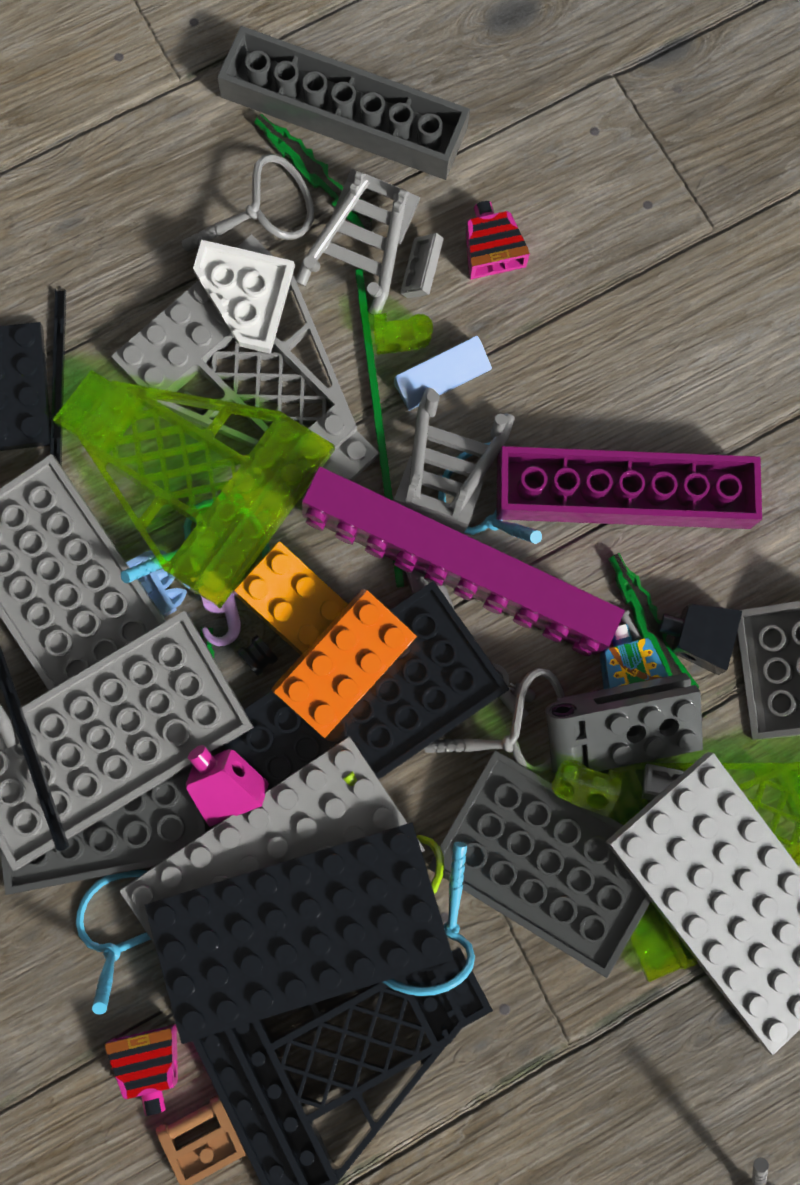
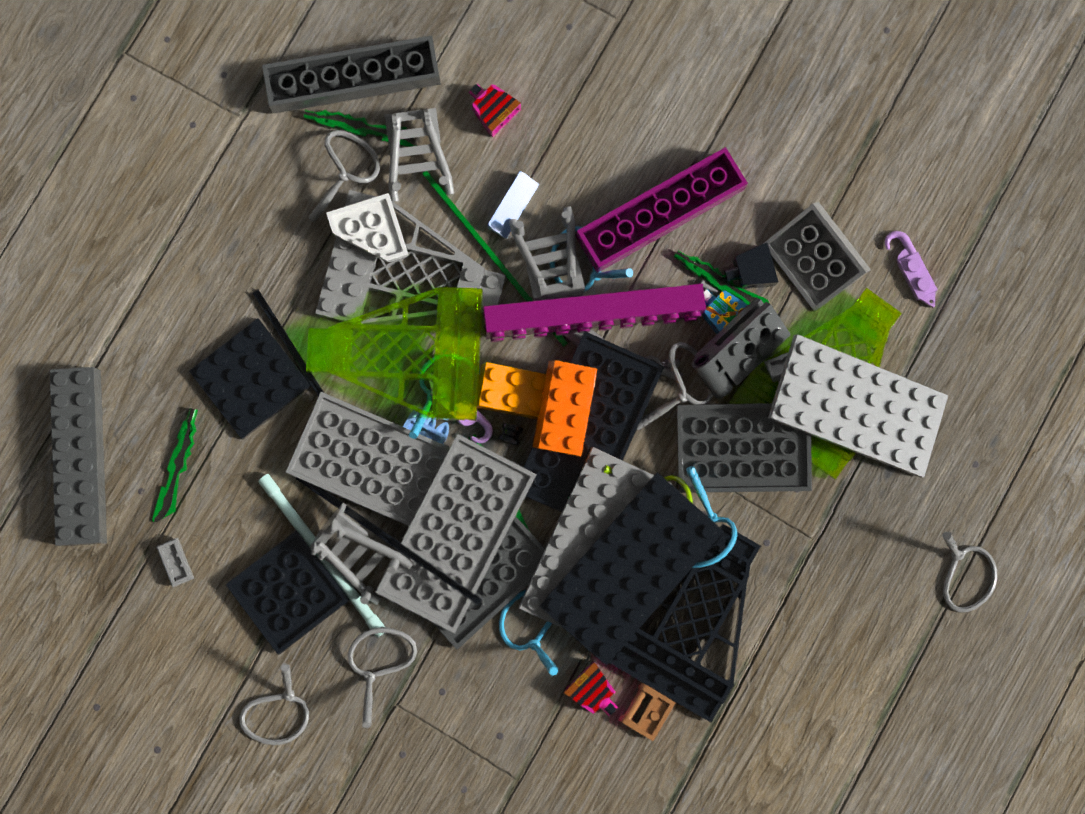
camera: 30 degrees left, 5 degrees up
(223, 784) = (540, 516): dark pink torso -> none
(401, 334) = (475, 196): clear neon green leg -> none
(421, 265) = (460, 147): light grey plate -> none
(587, 787) = (740, 394): clear neon green leg -> none

